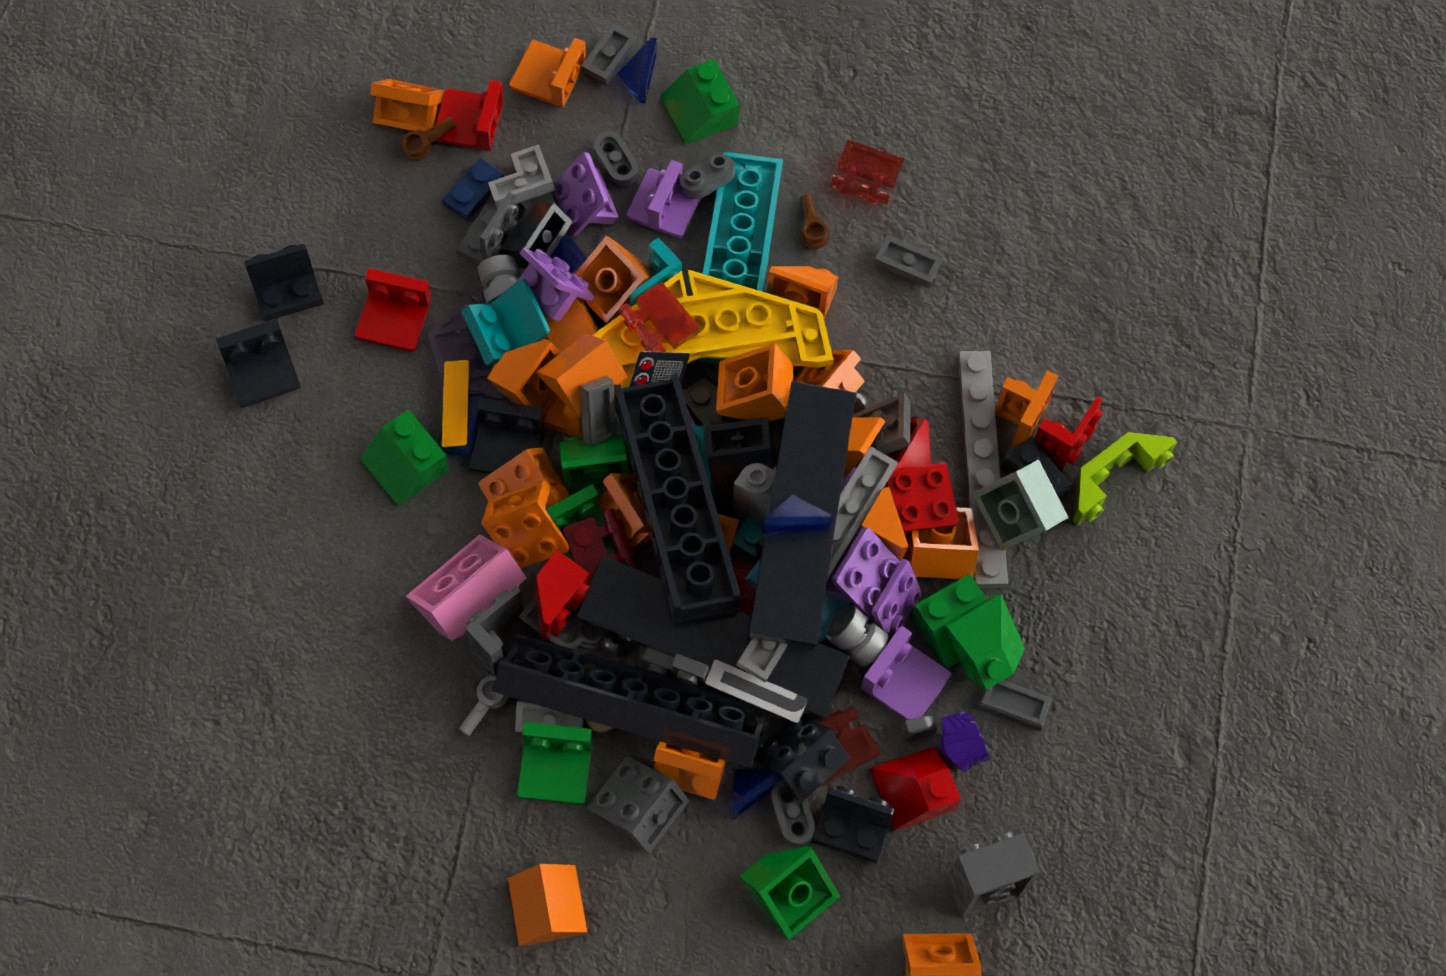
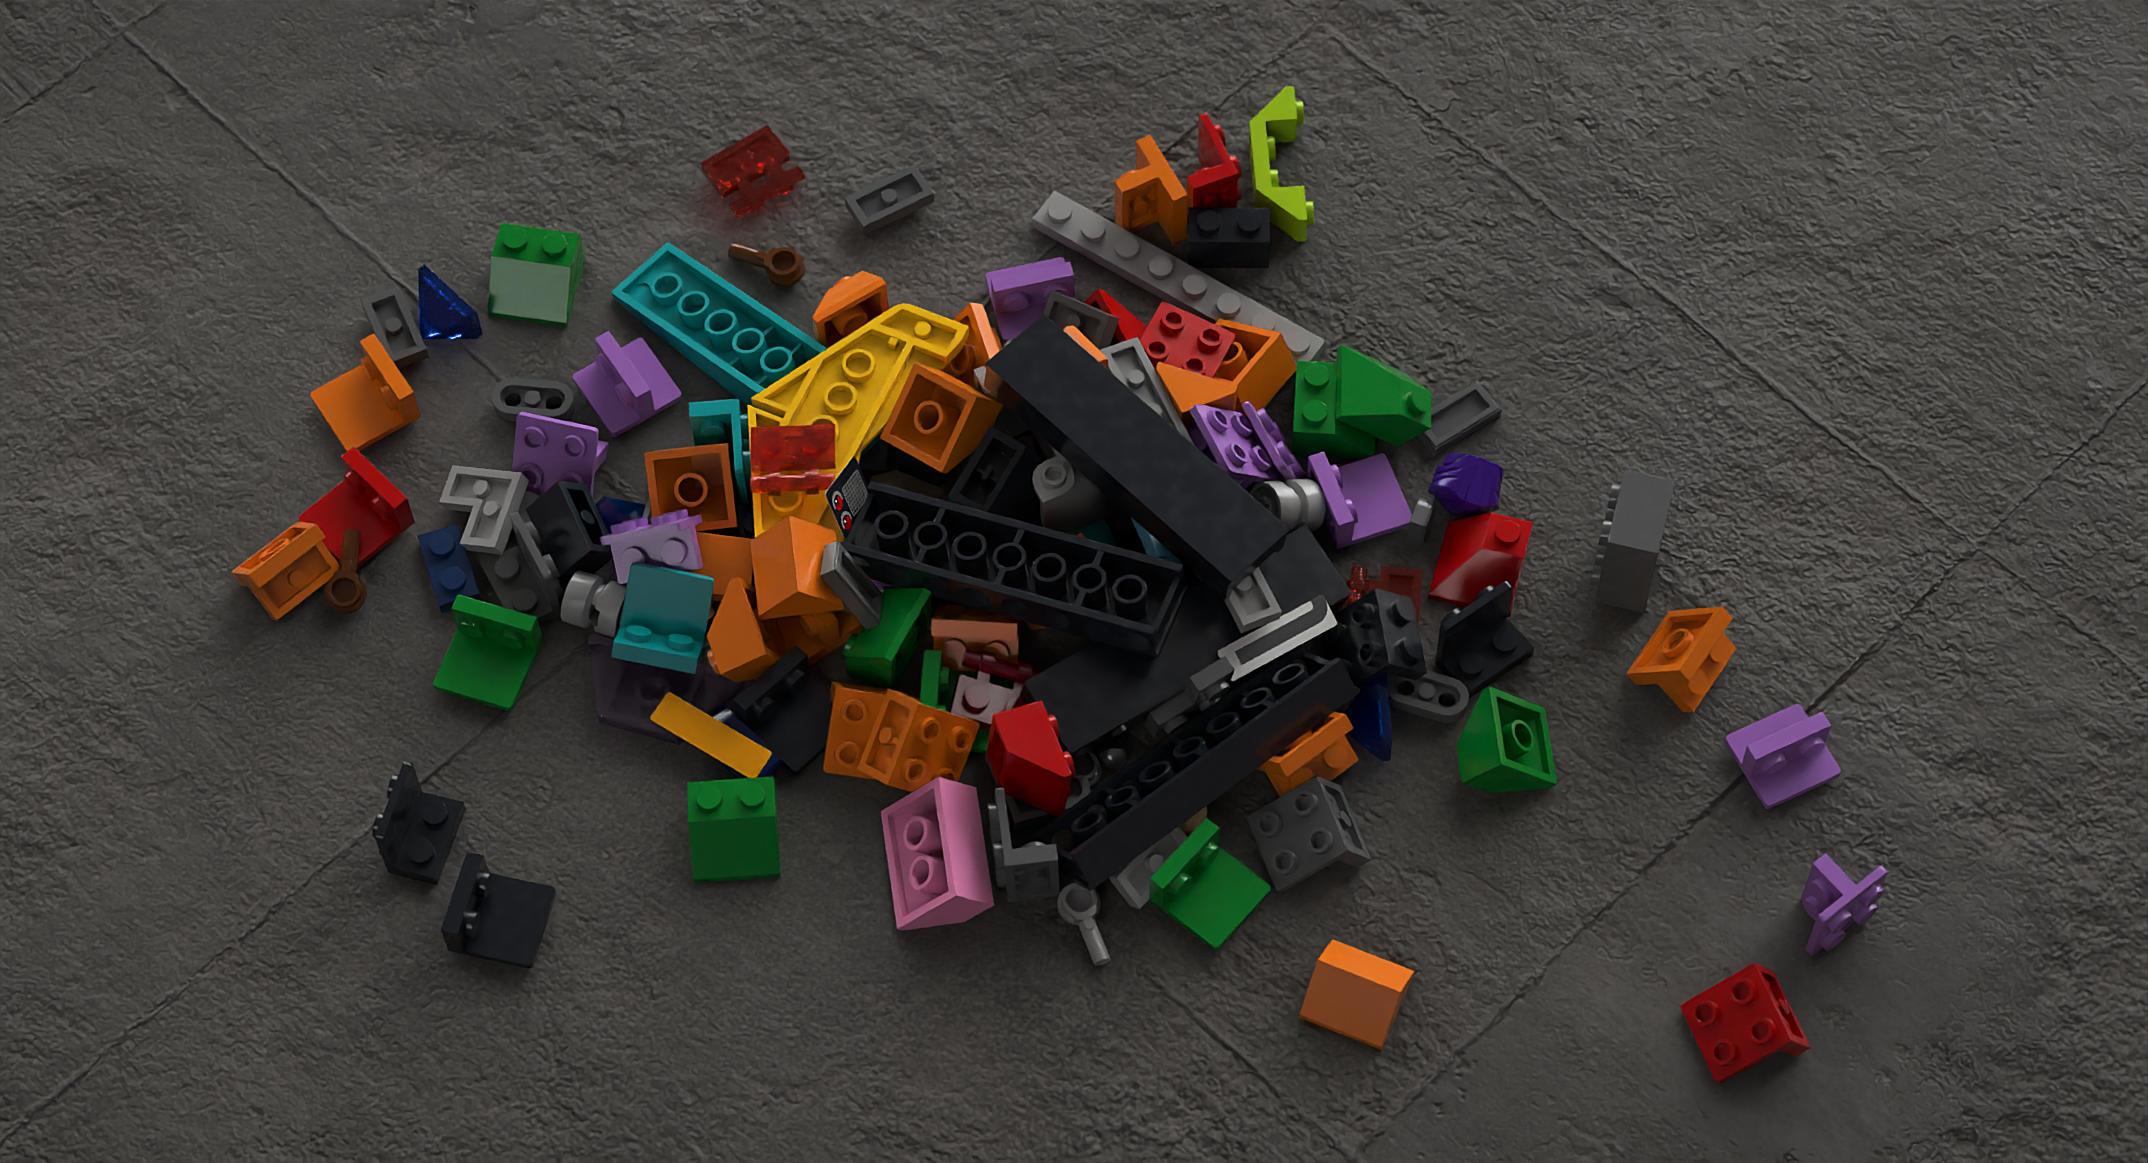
camera: 50 degrees left, 5 degrees down
(394, 310) = (540, 735): red bracket -> none
(427, 247) = (488, 653): none -> green bracket
(707, 176) = (635, 314): dark grey plate -> none
(796, 517) = (1143, 452): clear blue slope -> none
(902, 375) = (1023, 291): none -> medium lavender bracket
(1020, 505) = (1259, 265): sand green brick -> none

